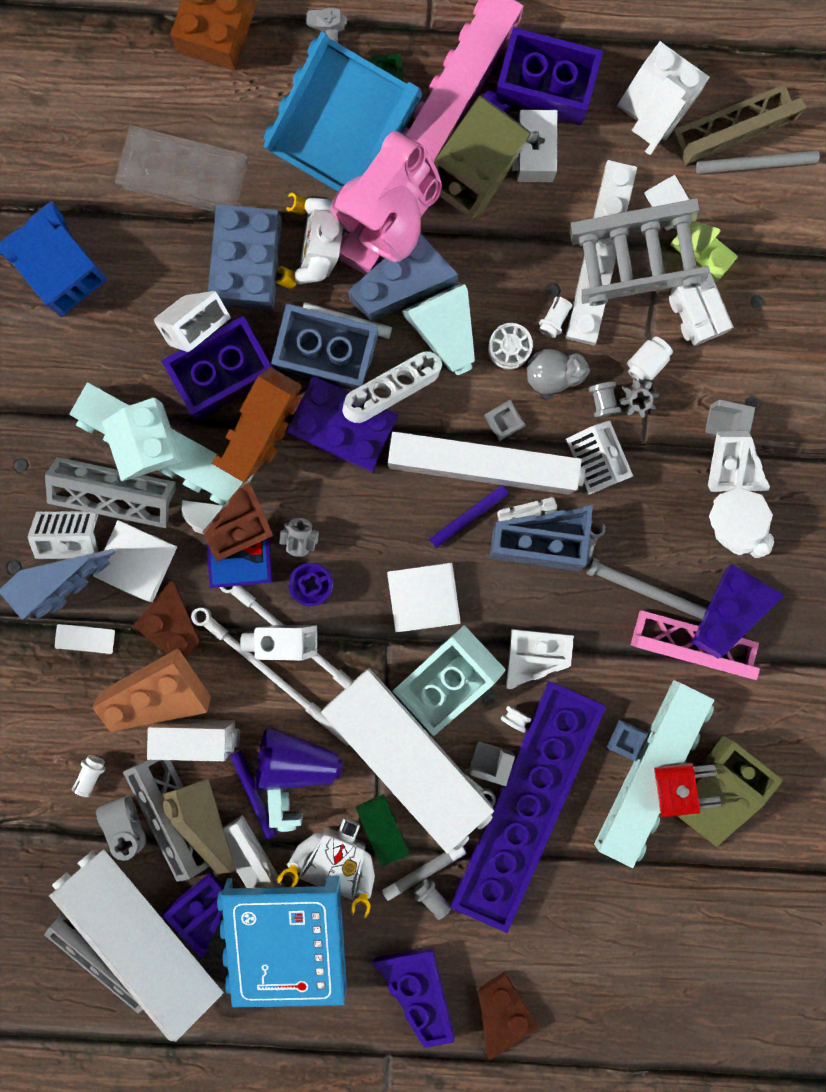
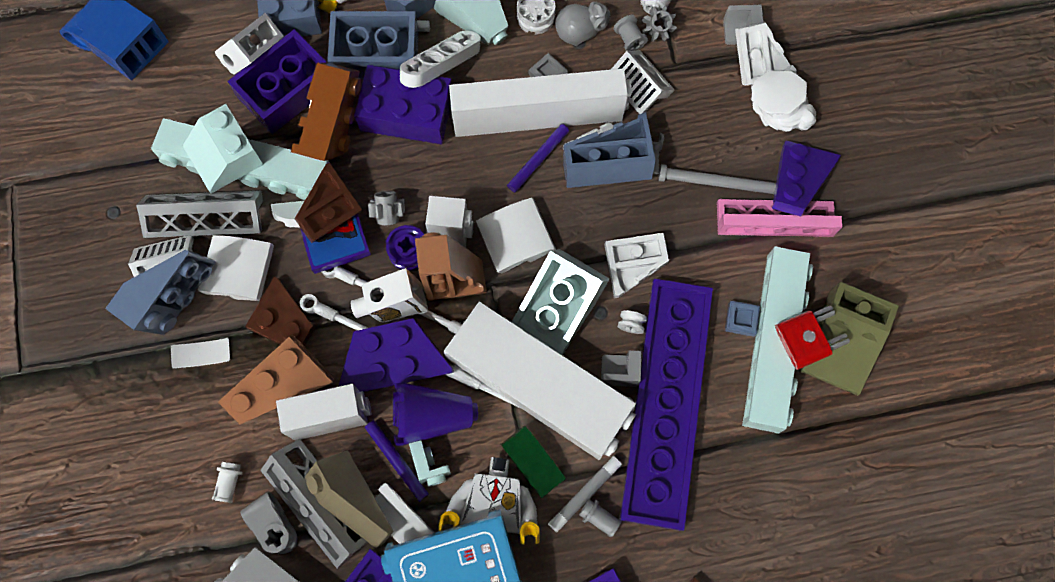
camera: 10 degrees left, 15 degrees down
(269, 696) = (392, 355): none -> dark purple wing
(346, 628) = (448, 268): none -> nougat wedge
(358, 574) = (449, 217): none -> white brick

